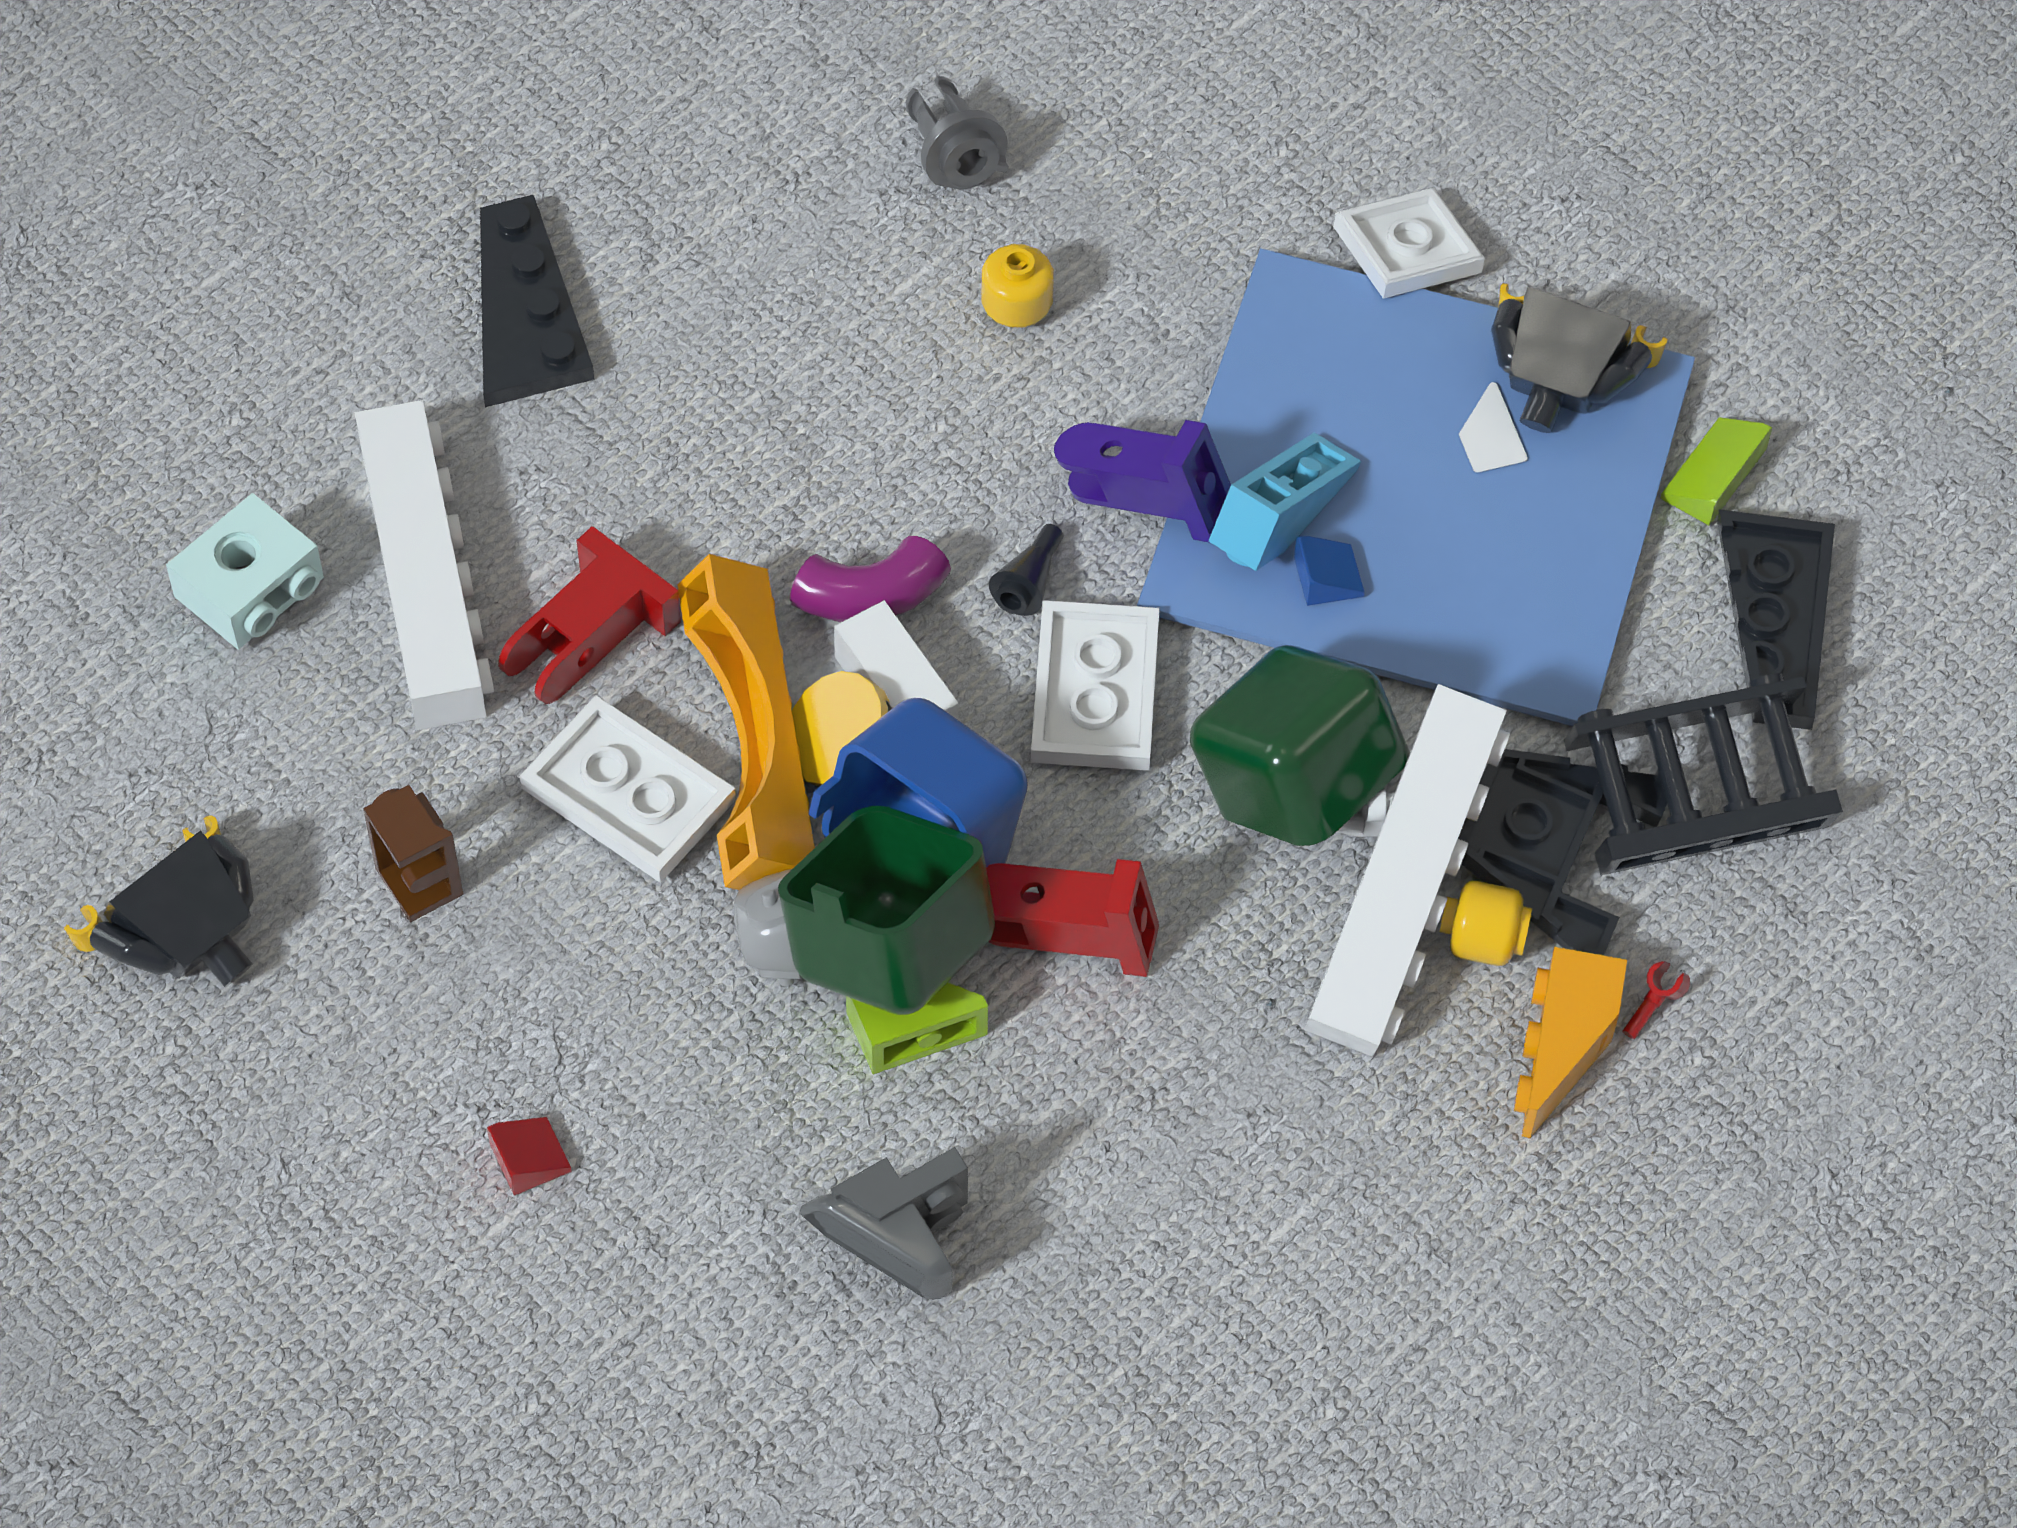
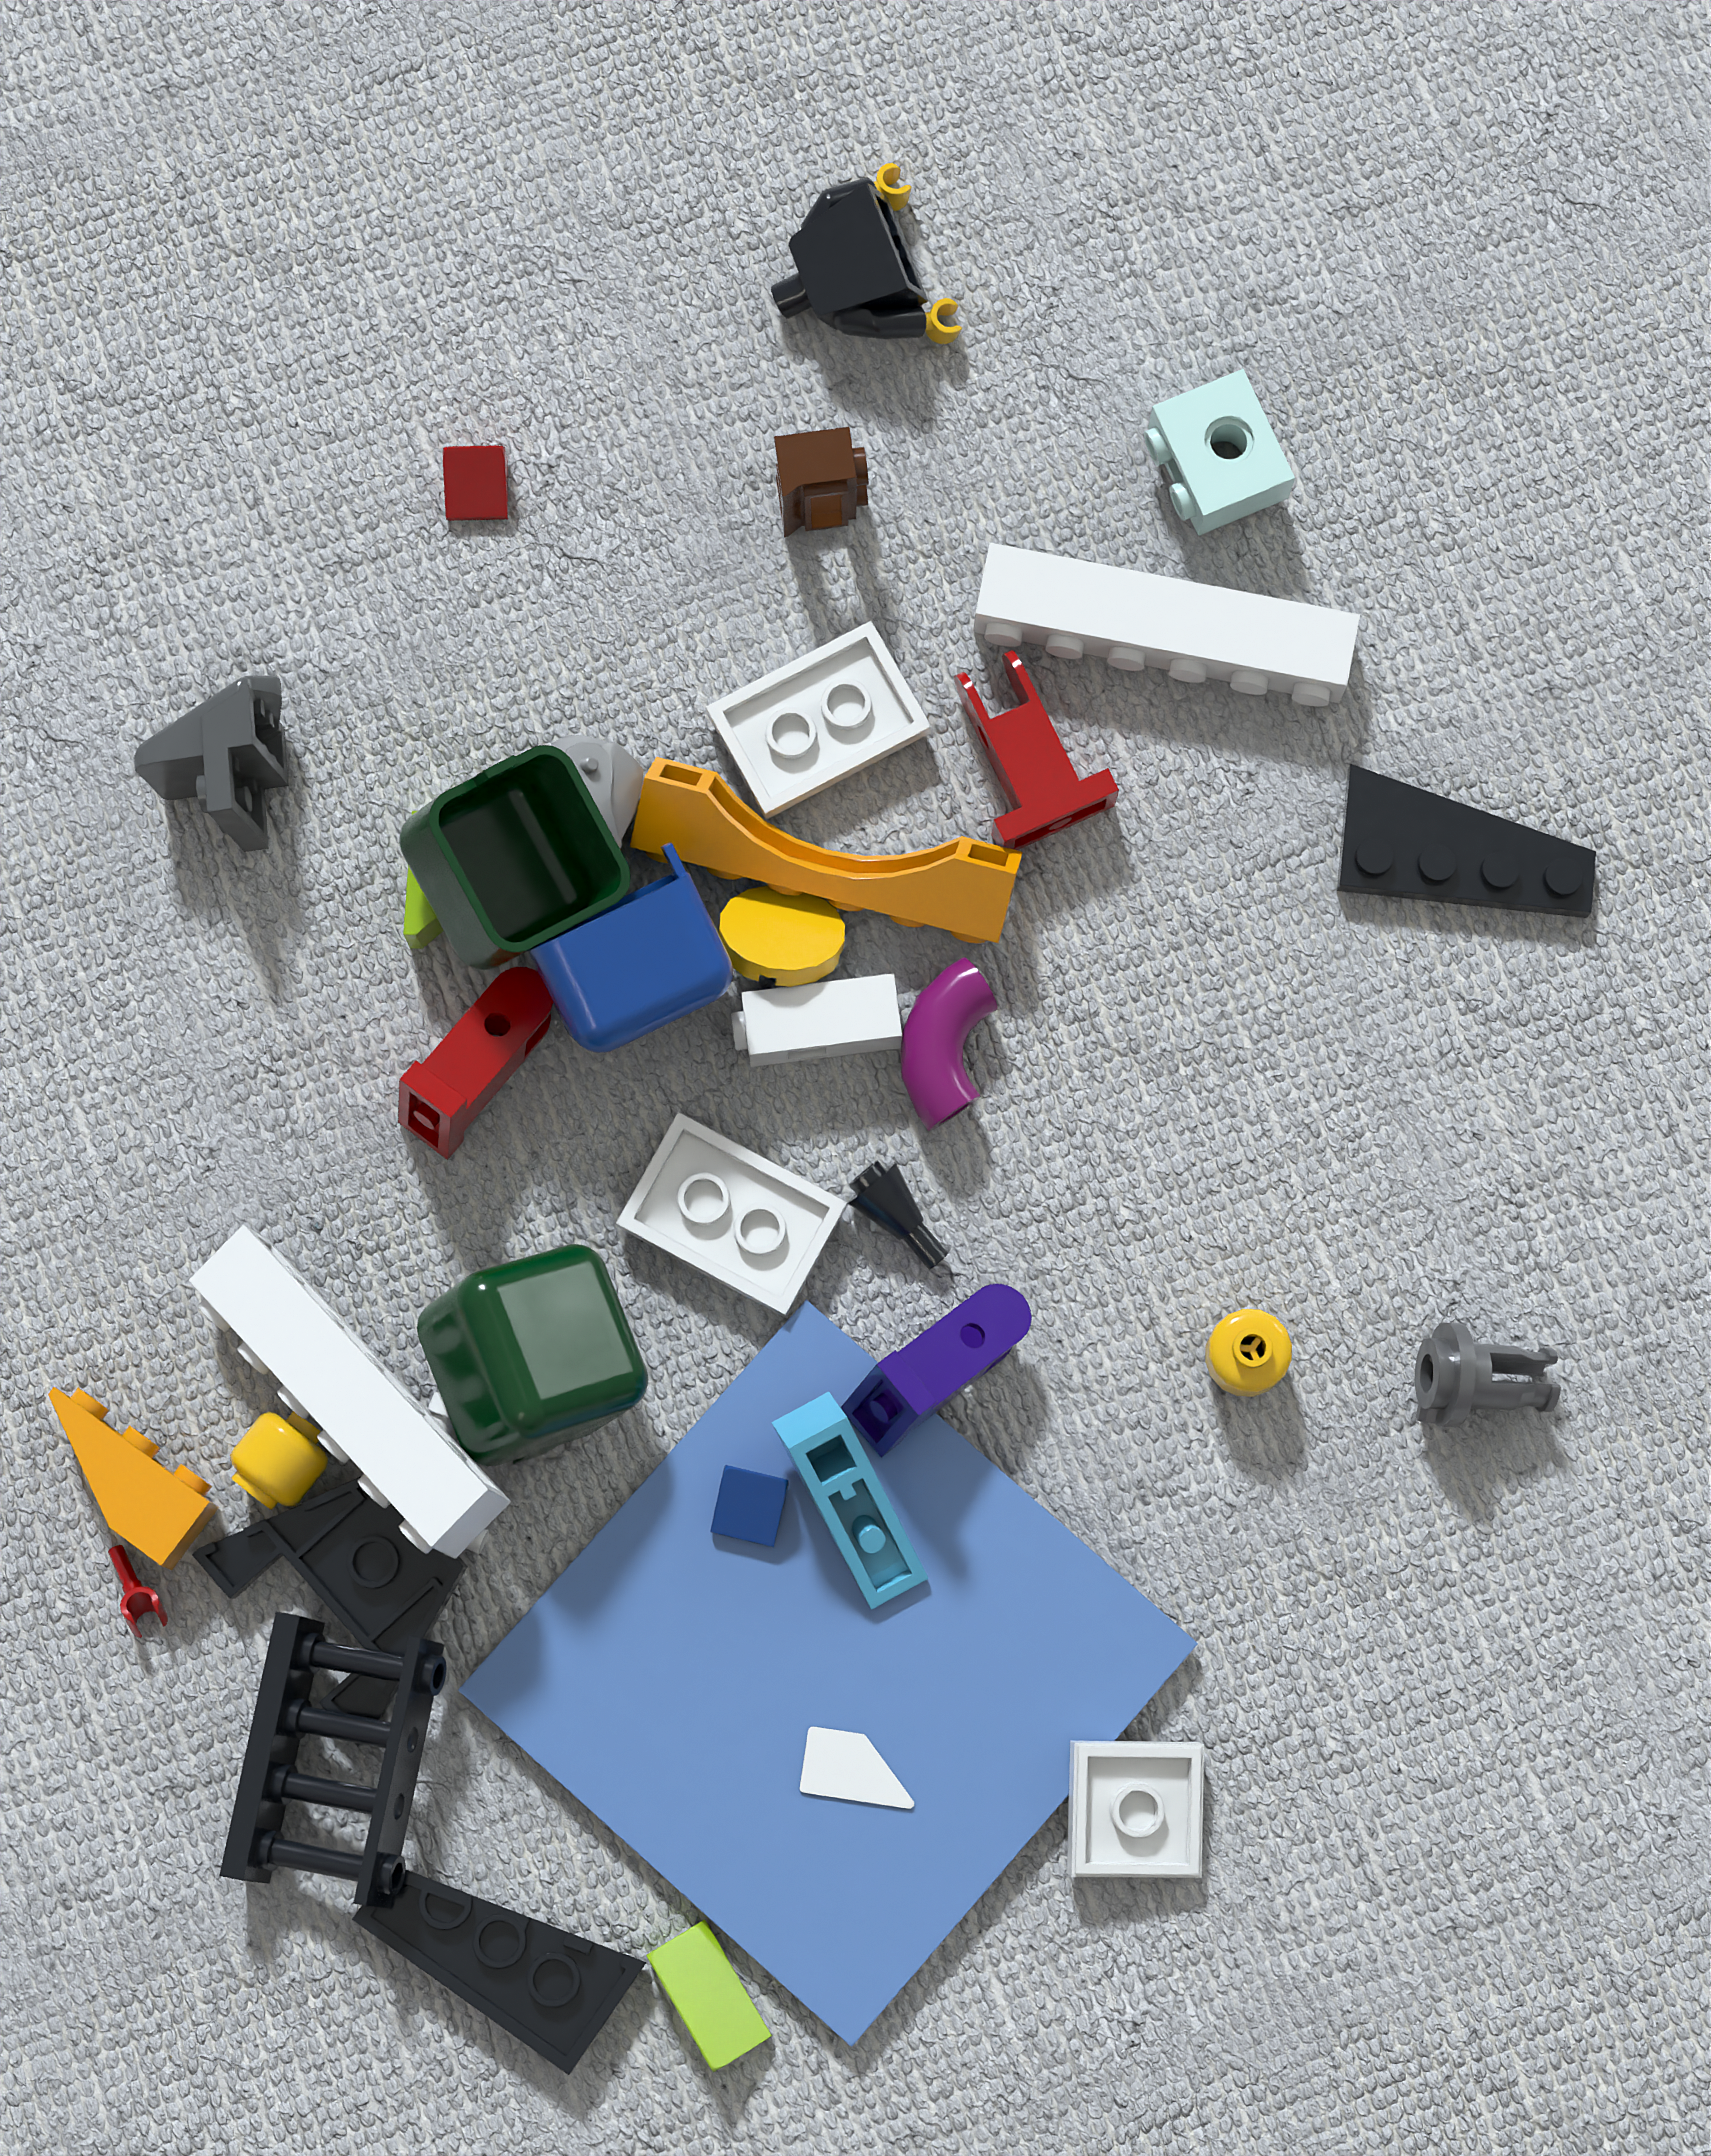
camera: 115 degrees right, 20 degrees up
(1566, 354) = (891, 1883): torso -> none

